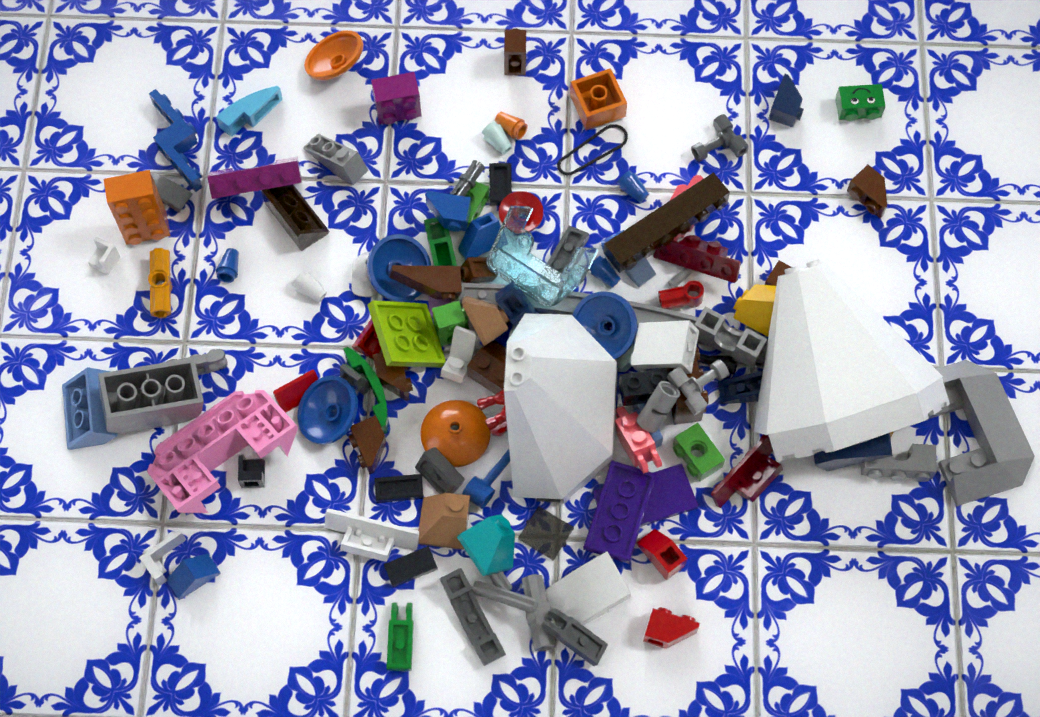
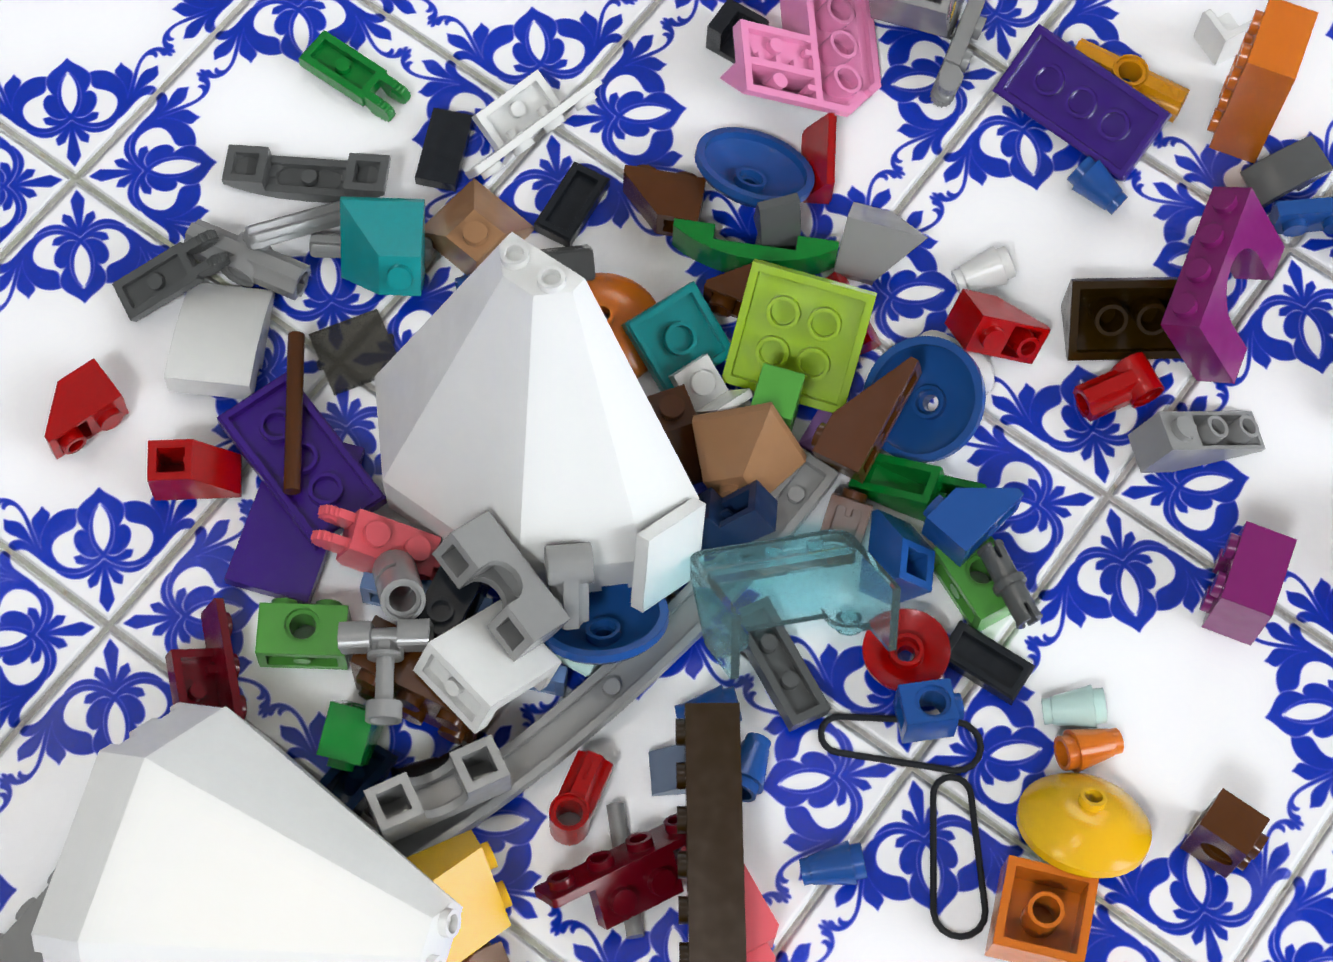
camera: 120 degrees right, 0 degrees up
(188, 293) = (1082, 102): none -> dark purple tile
(324, 341) = (874, 243): none -> light grey slope
(328, 198) = (1128, 383): none -> red piece
(340, 262) = (995, 327): none -> red slope
(438, 392) = (676, 334): none -> teal tile
(547, 194) = (916, 724): none -> blue brick
(556, 109) = (1084, 825): none -> yellow dish
(561, 309) = (665, 554): none -> white tile
(567, 190) = (895, 761): none -> black piece
(603, 525) = (294, 413): none -> reddish brown bar
(604, 335) = (568, 575): none -> light grey piece
(625, 370) = (487, 555): none -> light grey arch
(727, 396) = (347, 737): none -> green slope

